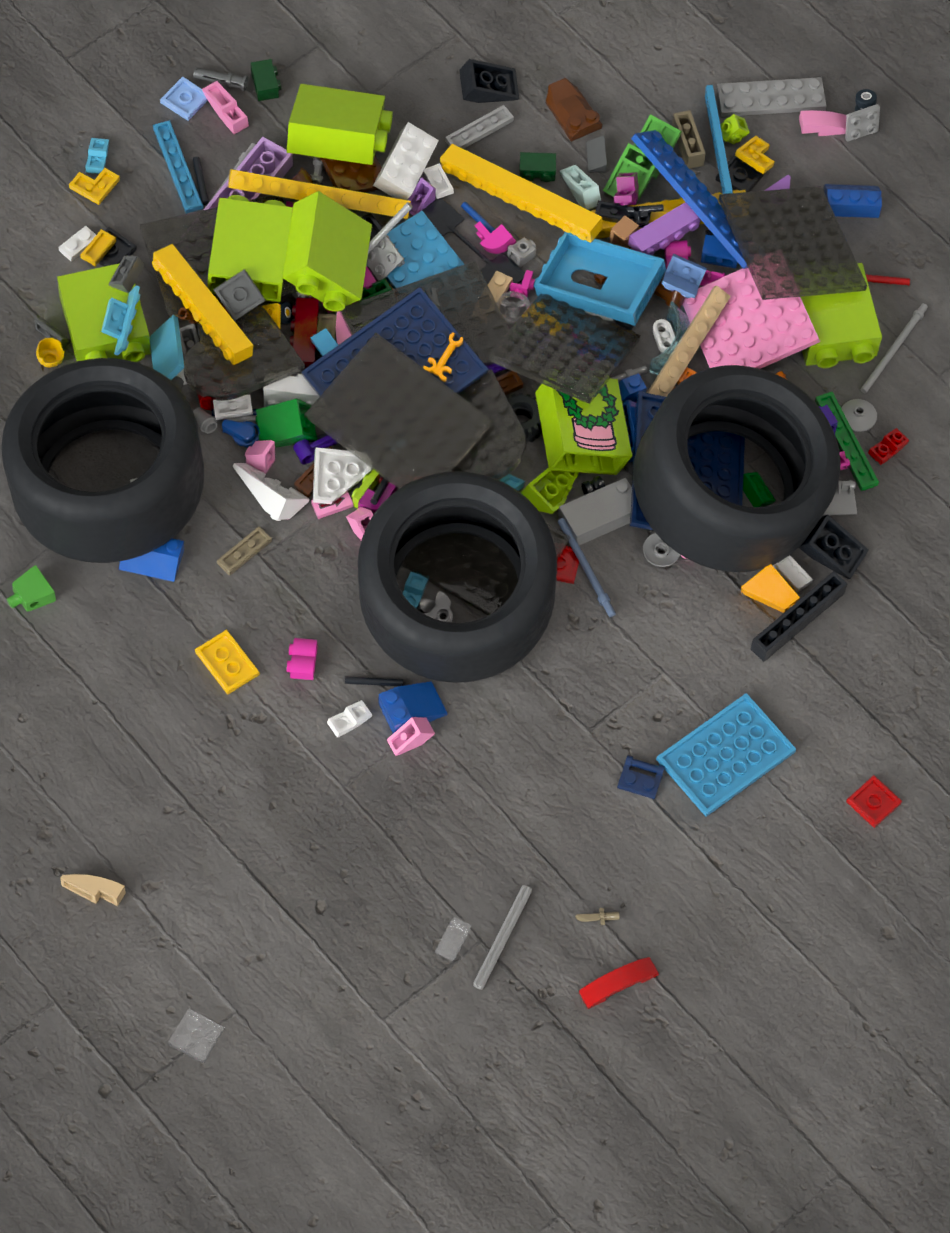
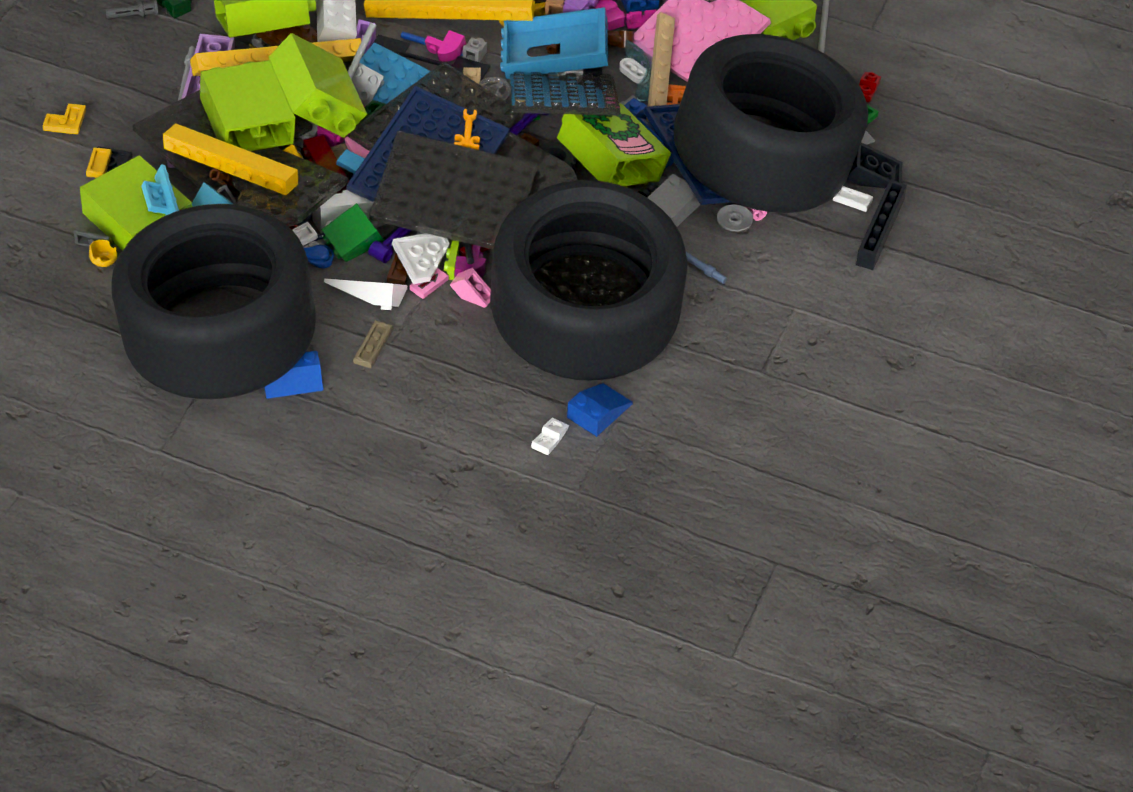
camera: 25 degrees left, 15 degrees down
(31, 591) = (198, 439): bright green torso -> none
(77, 243) = (76, 168): white plate -> none
(94, 887) = (402, 651): tan slope -> none
(97, 155) = (54, 99): medium azure slope -> none
(127, 273) = (143, 163): dark grey slope -> none
(177, 167) = (130, 83): dark azure tile -> none
(184, 99) = (108, 35): light blue tile -> none
(196, 1036) = (573, 734): clear plate -> none
(200, 180) = (159, 87): black bar -> none
(226, 107) = (151, 28): bright pink slope -> none
(227, 662) = (411, 433): yellow tile -> none
(239, 294) = (261, 137): dark grey tile -> none
(261, 455) = (344, 264): bright pink slope -> none
(303, 658) = (479, 404): dark pink brick -> none
(373, 681) = (551, 401): black bar -> none
(410, 735) = (613, 428): bright pink slope -> none
(437, 178) = (381, 26): white plate -> none
(453, 939) = (753, 569): clear slope -> none
(502, 937) = (794, 552): light grey axle -> none
(527, 284) = (494, 70): dark pink bracket -> none
(598, 916) = (867, 504): dark tan piece -> none
(618, 980) = (914, 548): red slope -> none
(638, 782) = (830, 393): dark blue plate -> none
(683, 276) = (625, 16): medium blue bracket -> none
(726, 754) = (889, 346): dark azure plate -> none
(770, 589) = (846, 214): light orange slope -> none
(874, 801) = (1032, 337): red tile -> none

